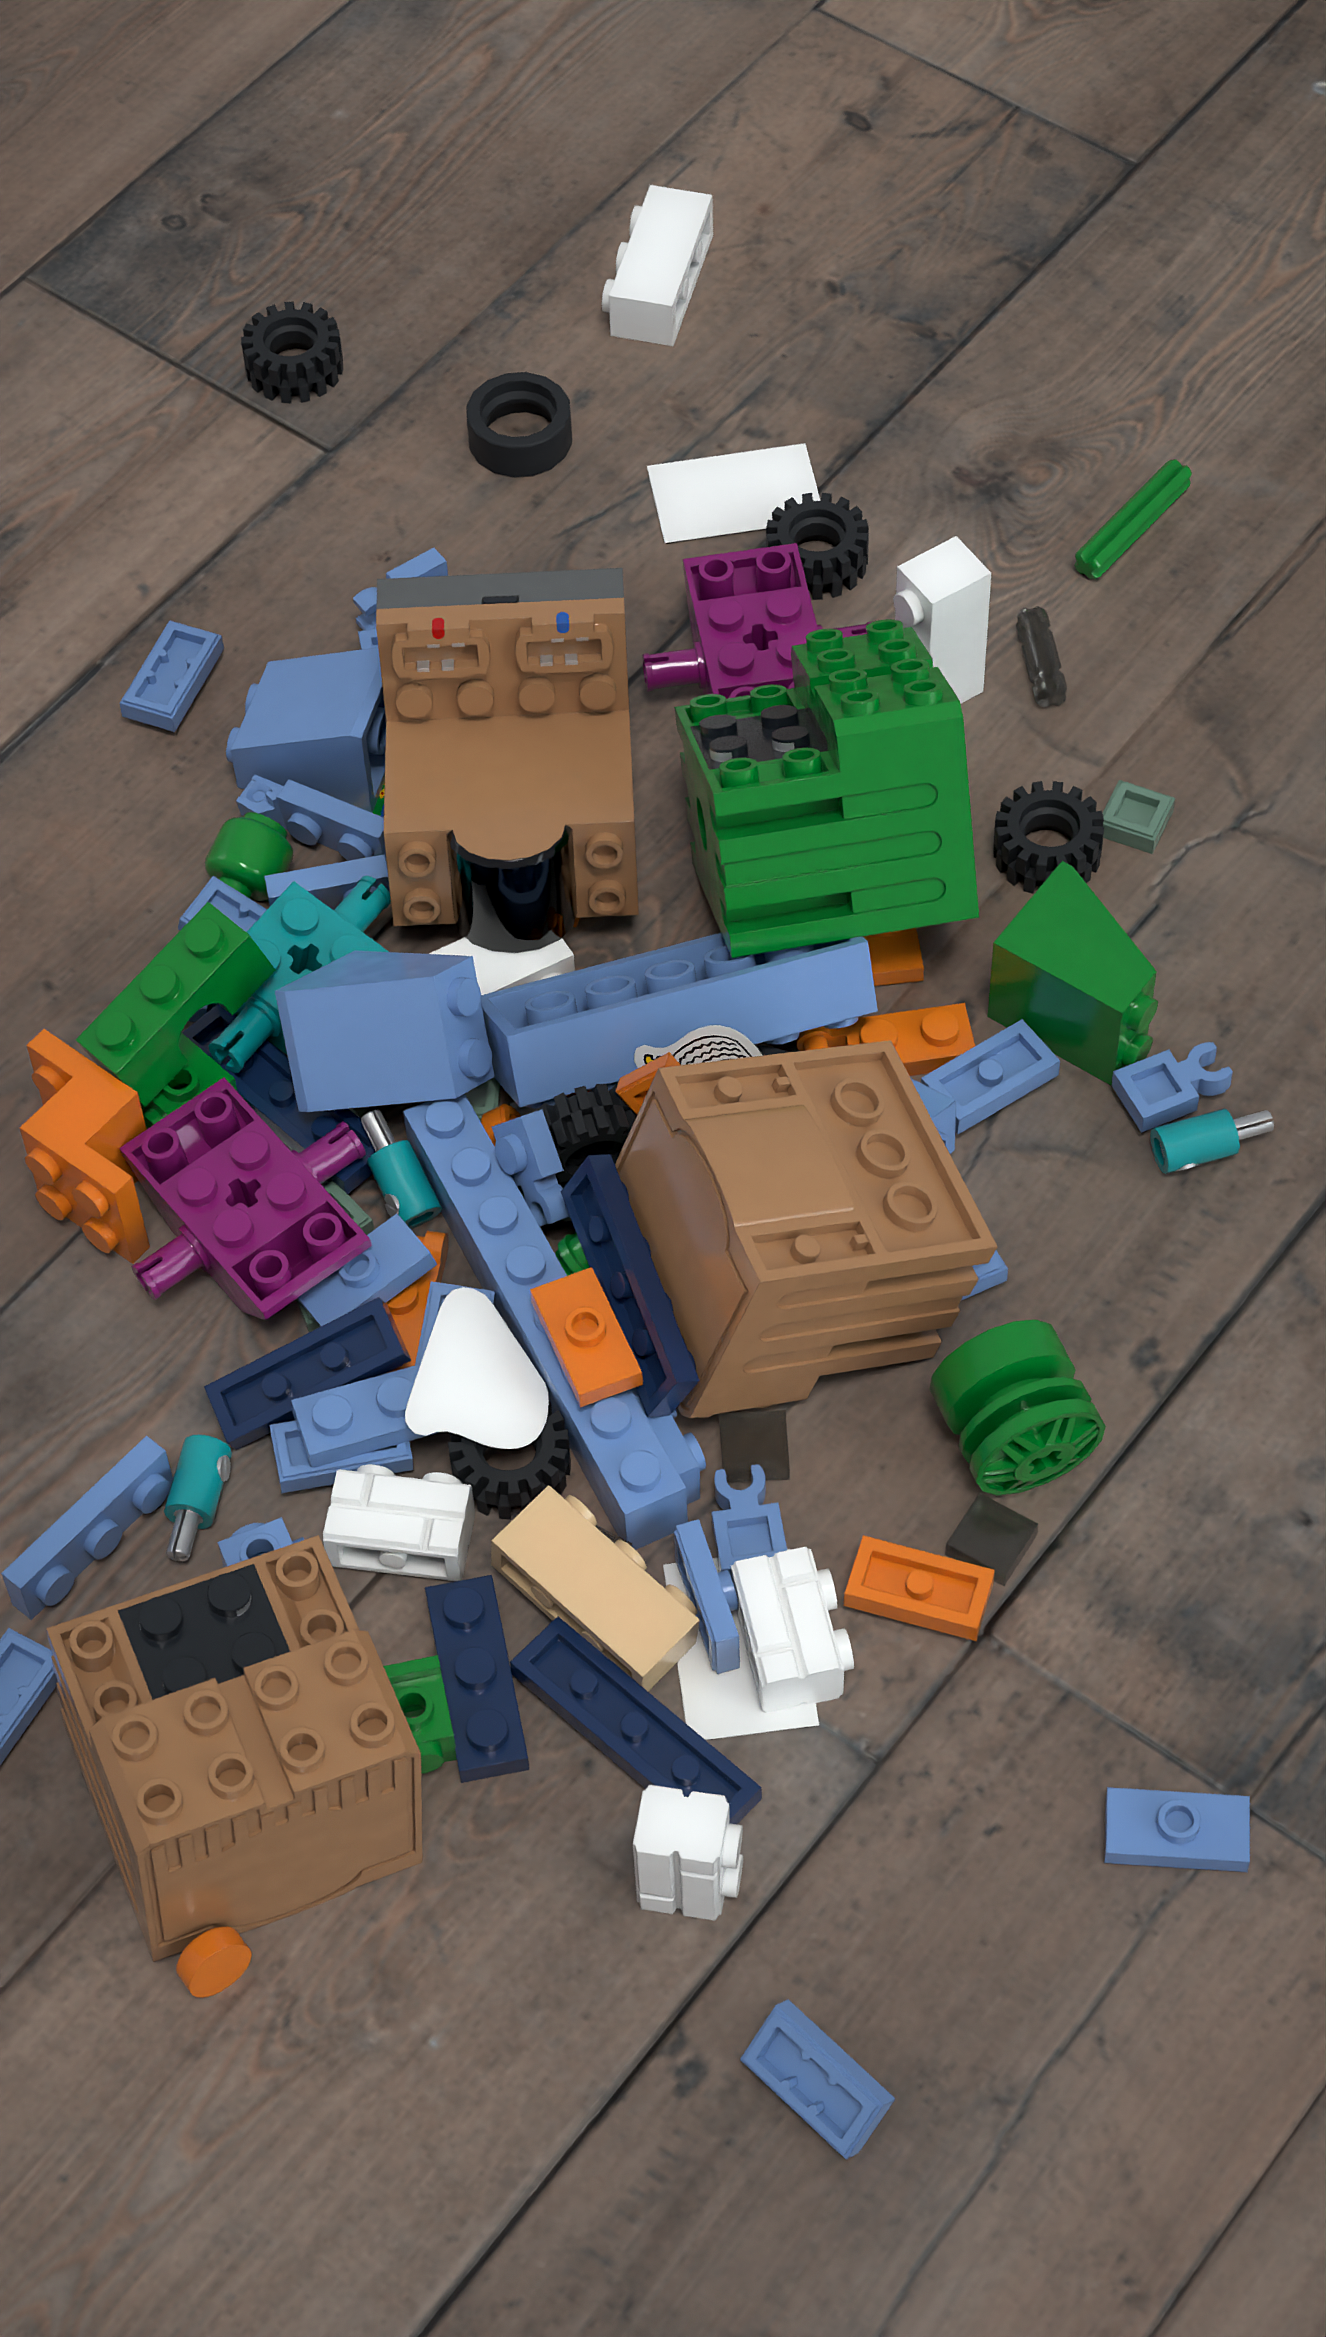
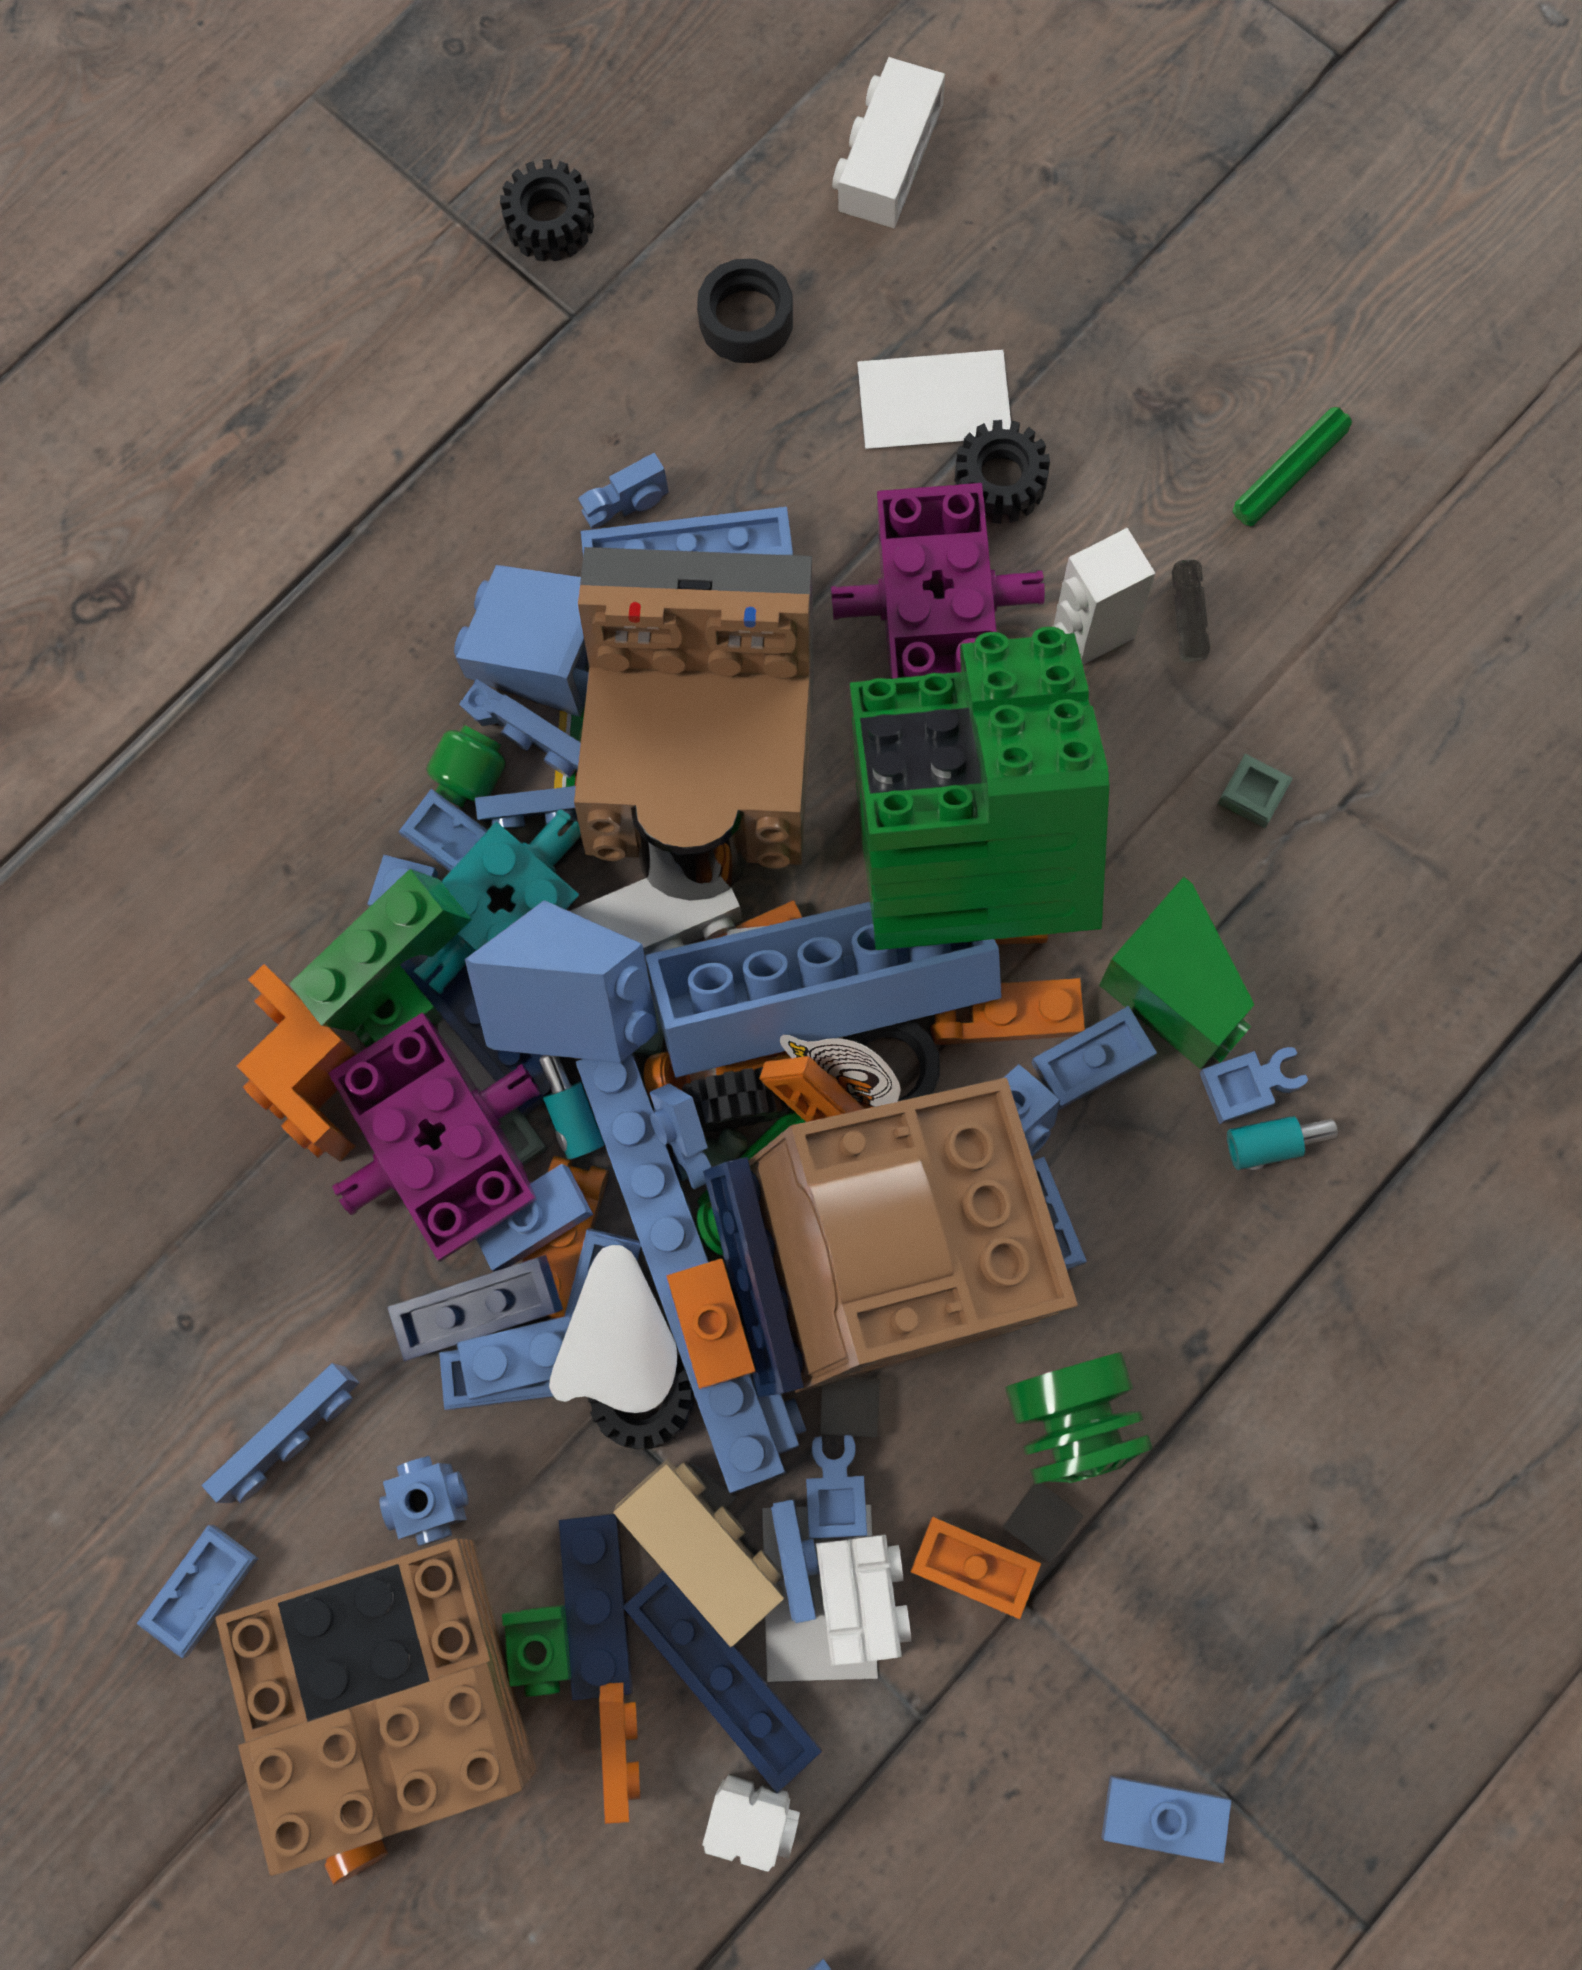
camera: 10 degrees right, 20 degrees up
(171, 676) = (414, 558): medium blue plate -> none
(195, 1491) = (373, 1405): teal piece -> none
(399, 1523) = (542, 1458): white brick -> none
(516, 1777) = (620, 1777): none -> orange plate
(1047, 811) = (1185, 782): black tyre -> none

